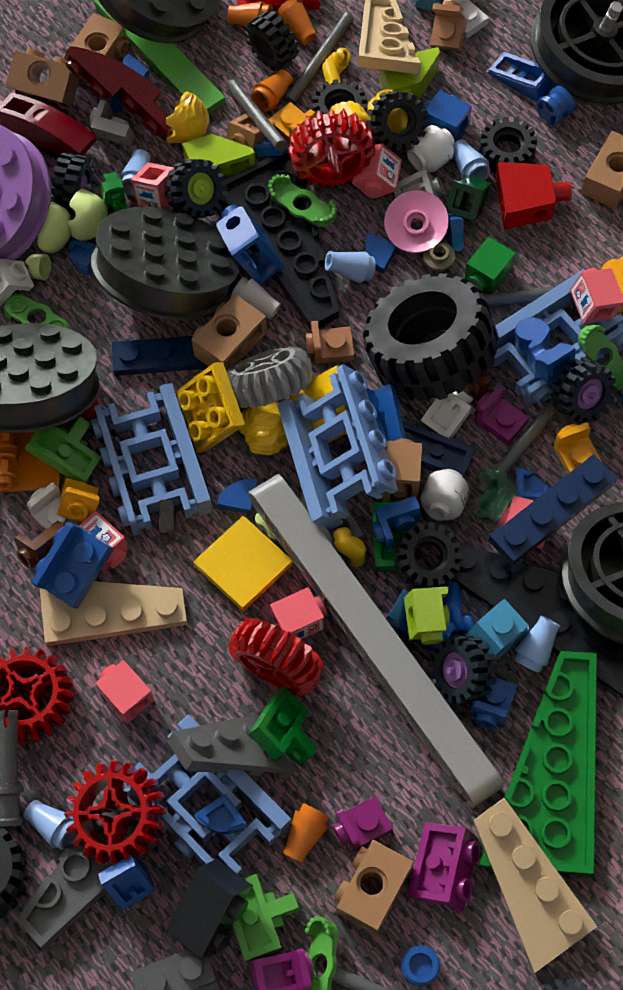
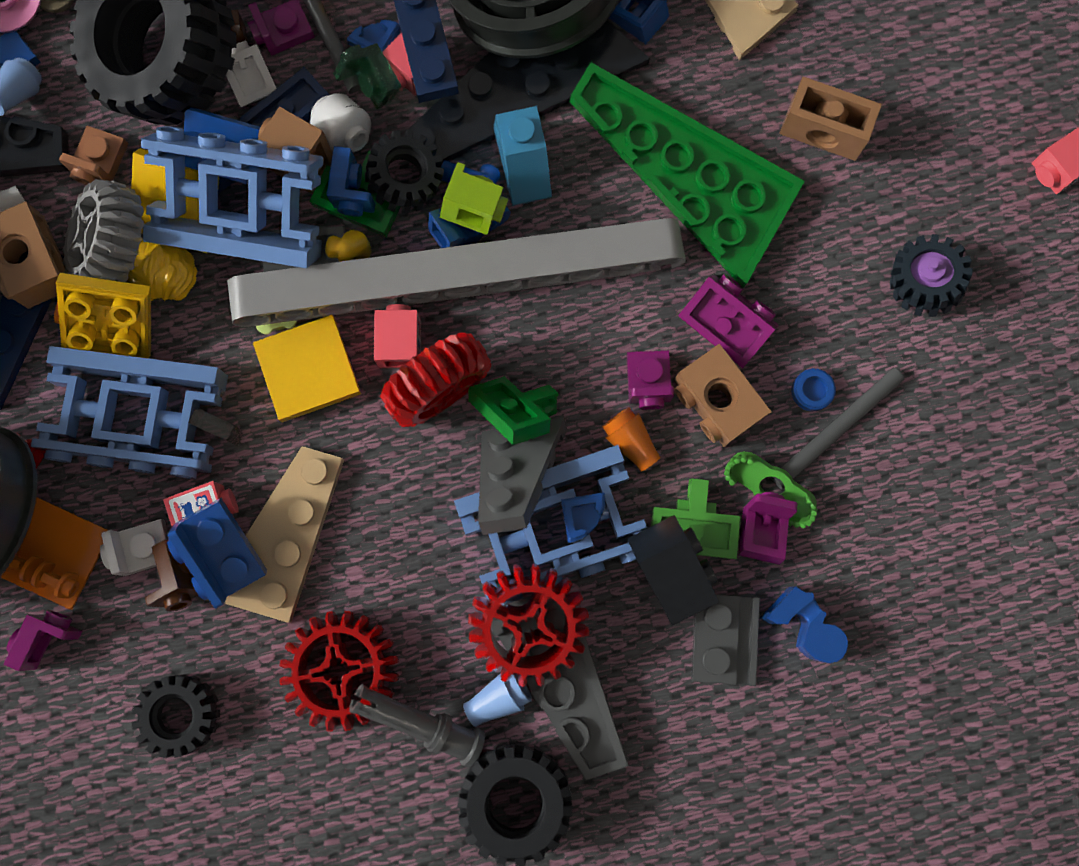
camera: 65 degrees left, 15 degrees up
(65, 450) = (68, 503): bright green hinge -> none
(77, 500) = (138, 514): light orange bracket -> none
(124, 690) = (388, 559): coral brick -> none
(127, 882) = (604, 644): blue bracket -> none
(236, 496) = (225, 338): blue tile -> none
(463, 669) = (544, 197): black wheel -> none
(494, 708) = (585, 190): blue bracket -> none
(537, 645) = (555, 117): light blue cone -> none
(538, 898) = (802, 244): tan wing -> none

